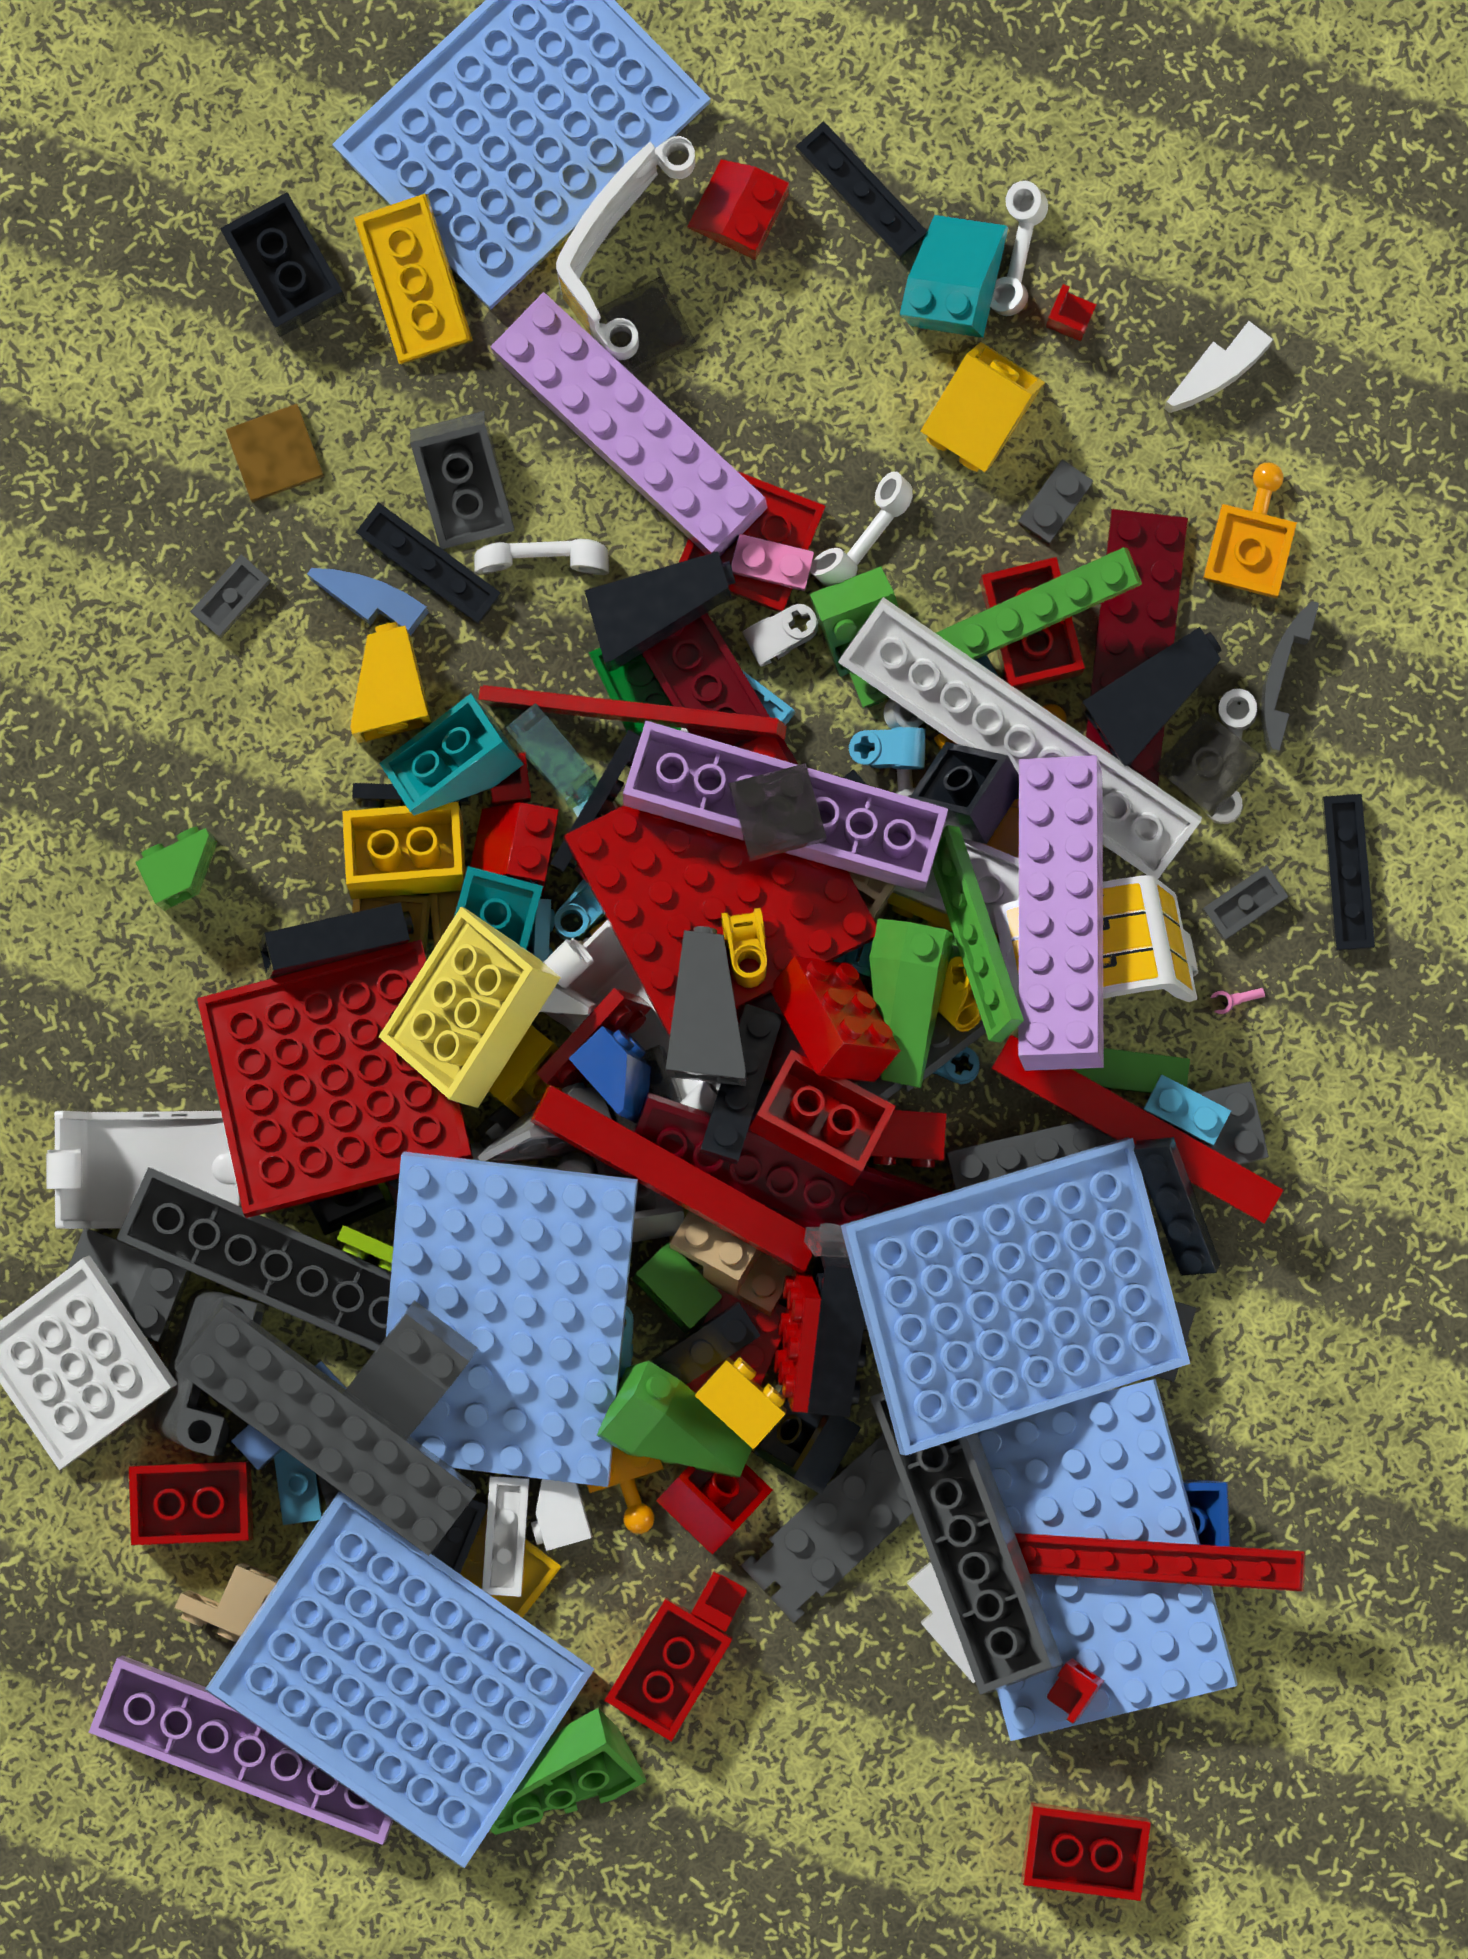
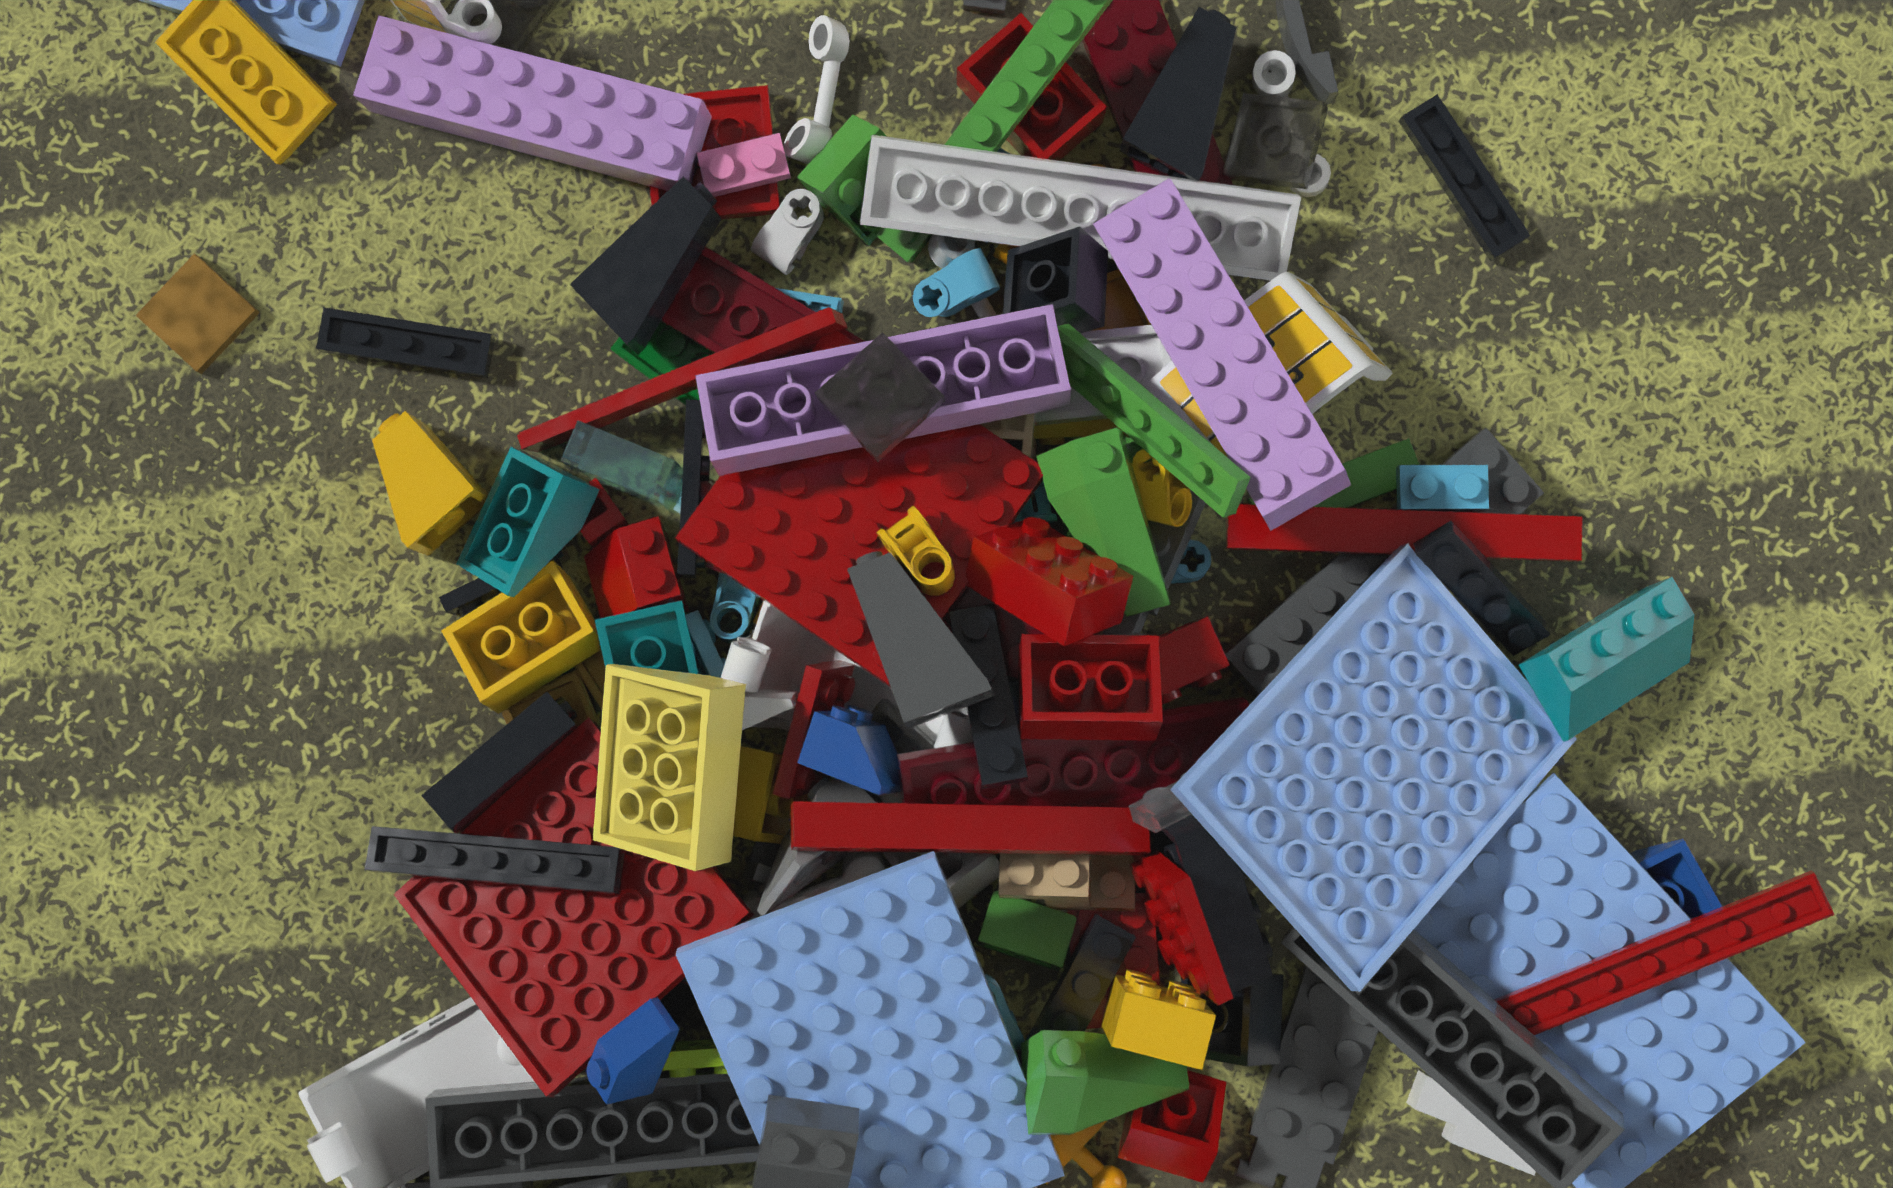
camera: 30 degrees left, 0 degrees up
(179, 869) = (305, 775): bright green slope -> none
(230, 596) = (224, 476): dark grey plate -> none
(283, 264) = (107, 122): black brick -> none
(293, 1012) = (495, 860): none -> black plate
(327, 1215) = (633, 1053): none -> blue slope
(370, 597) = (363, 404): medium blue slope -> none
(461, 480) = (396, 244): dark grey slope -> none
(584, 554) = (557, 254): white piece -> none
(1074, 1689) = (1646, 1130): red panel -> none
(1238, 998) = (1423, 355): bright pink hand -> none
(1245, 902) = (1380, 259): dark grey plate -> none
(1253, 1316) = (1612, 657): none -> teal slope

